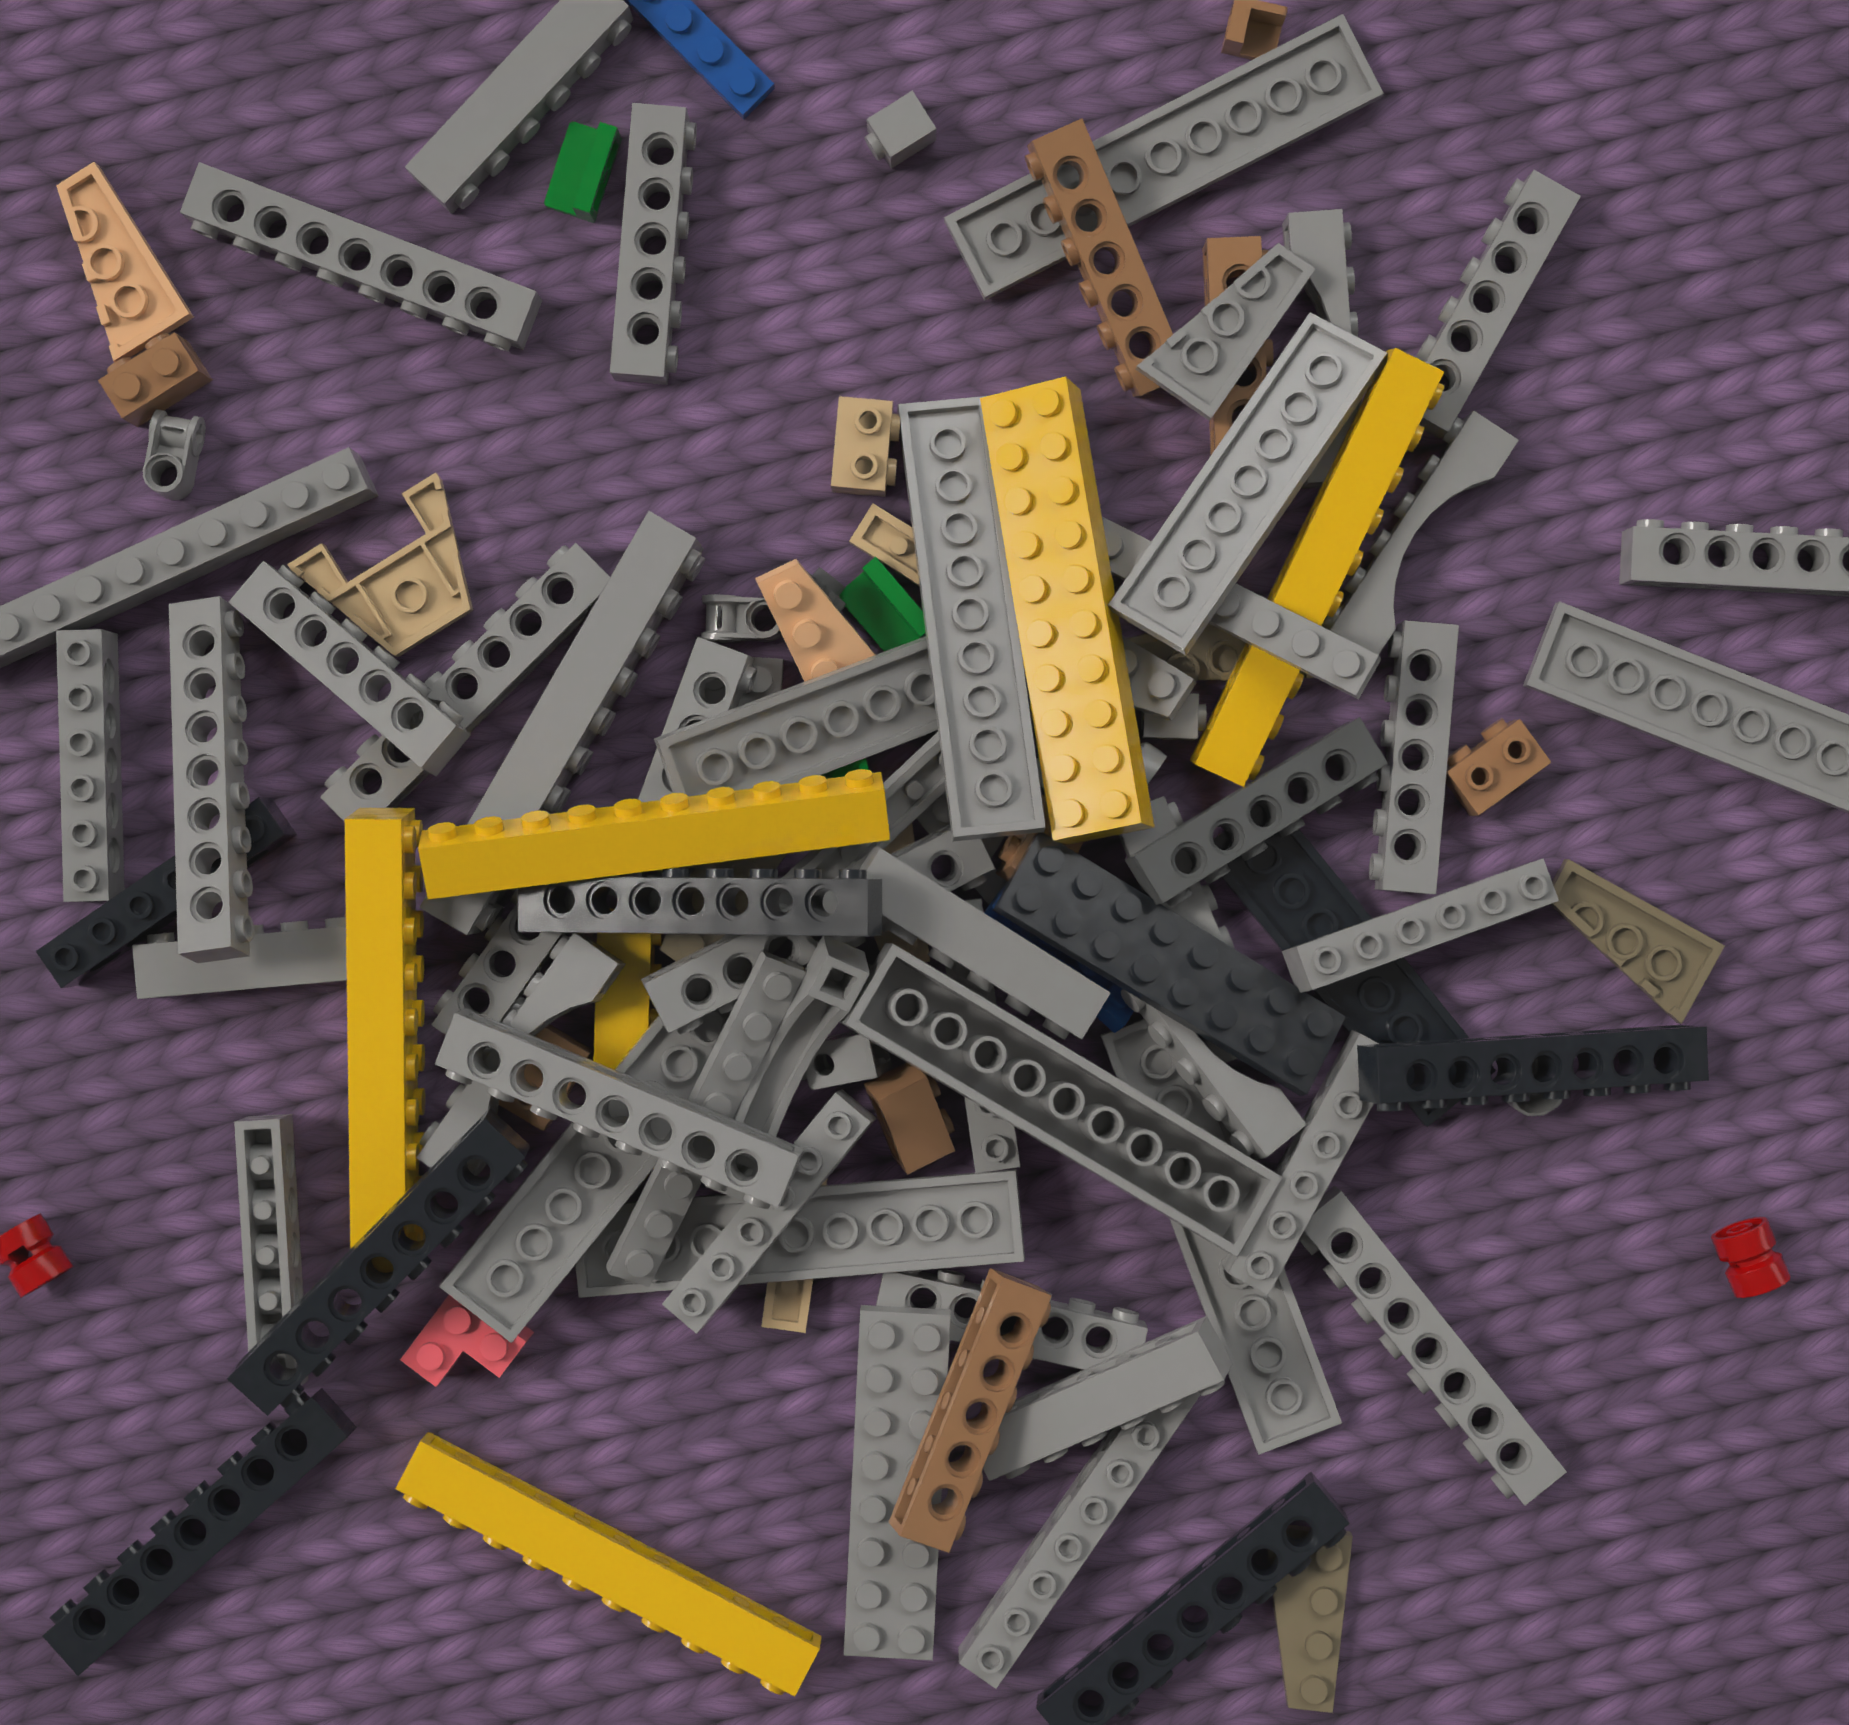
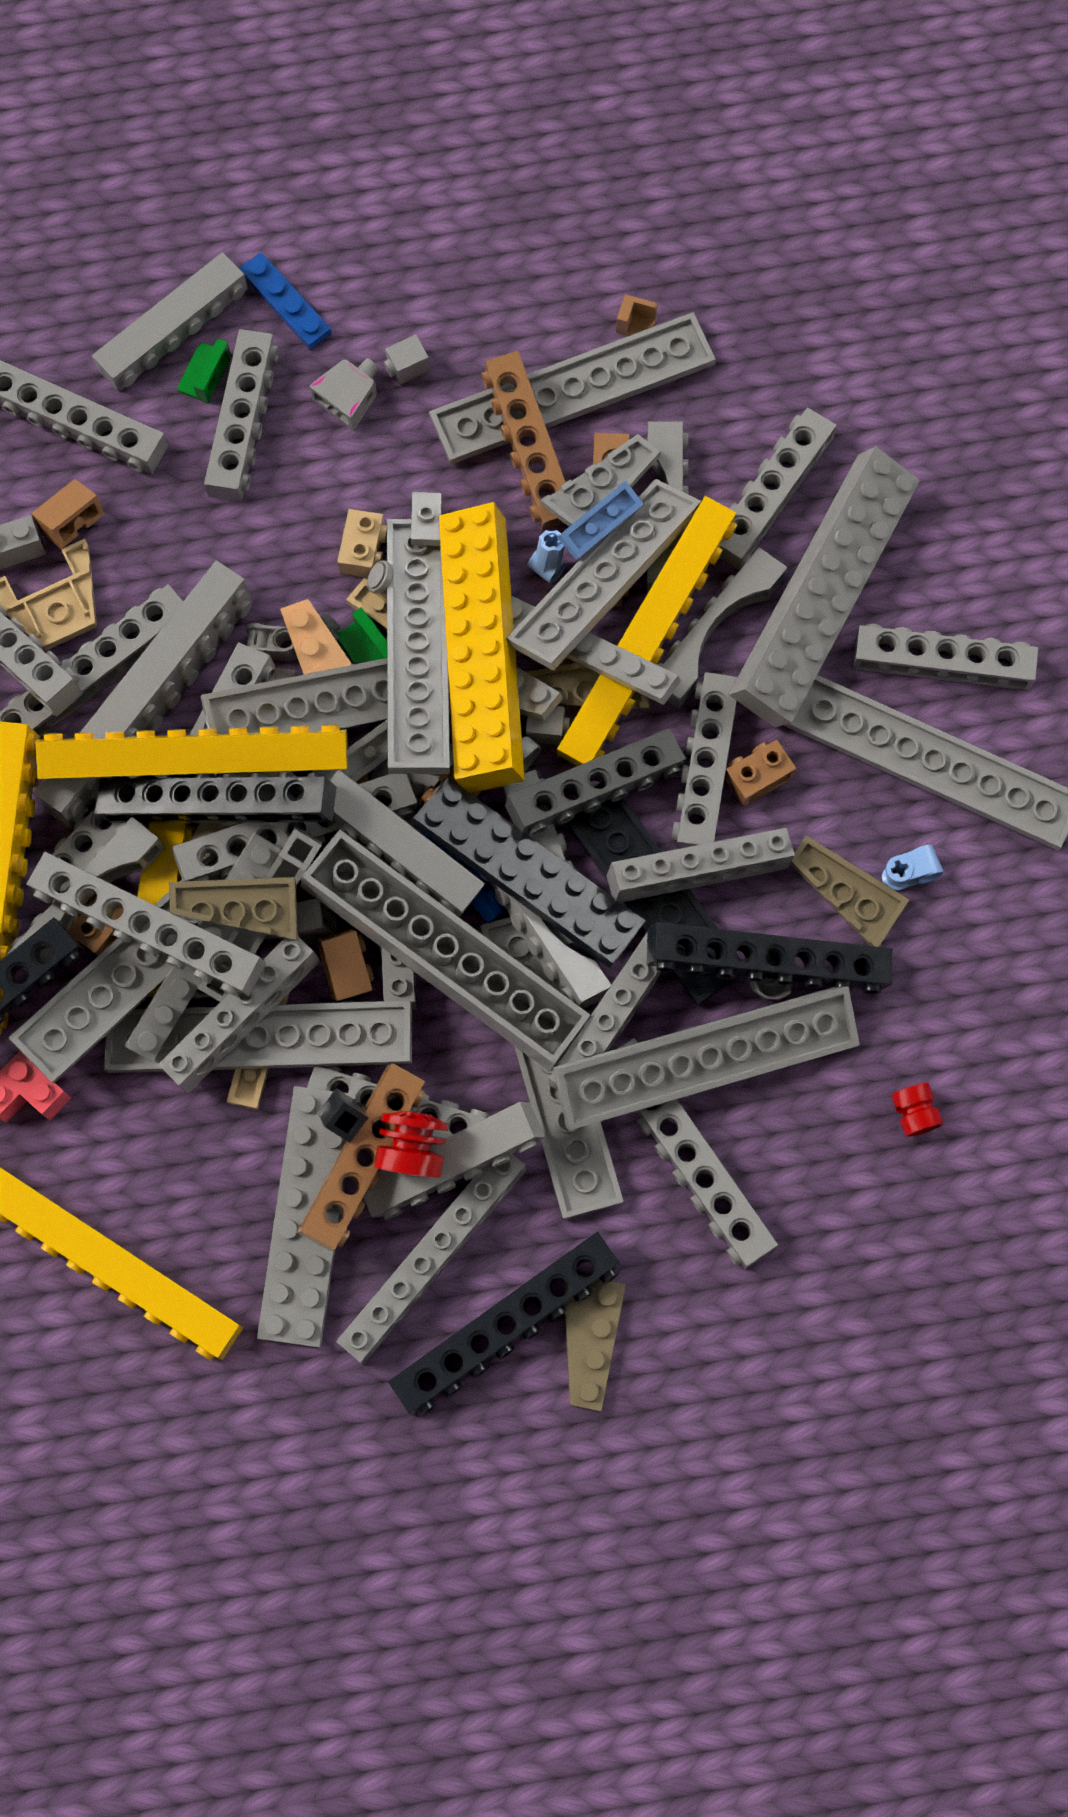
camera: 10 degrees right, 15 degrees down
(403, 435) = (67, 512): none -> medium nougat brick
(771, 1066) = (247, 904): none -> dark tan wing
(812, 190) = (346, 391): none -> light grey torso
(899, 507) = (380, 577): none -> light grey piece
(941, 1363) = (342, 1115): none -> black brick
(958, 401) = (425, 519): none -> light grey plate
(1046, 1404) = (411, 1144): none -> red wheel
(1153, 450) = (548, 557): none -> light blue piece
(1234, 397) = (600, 520): none -> medium blue plate
(1450, 1218) = (706, 1056): none -> light grey plate
(1580, 467) = (824, 588): none -> light grey brick
(1730, 895) = (916, 866): none -> light blue piece

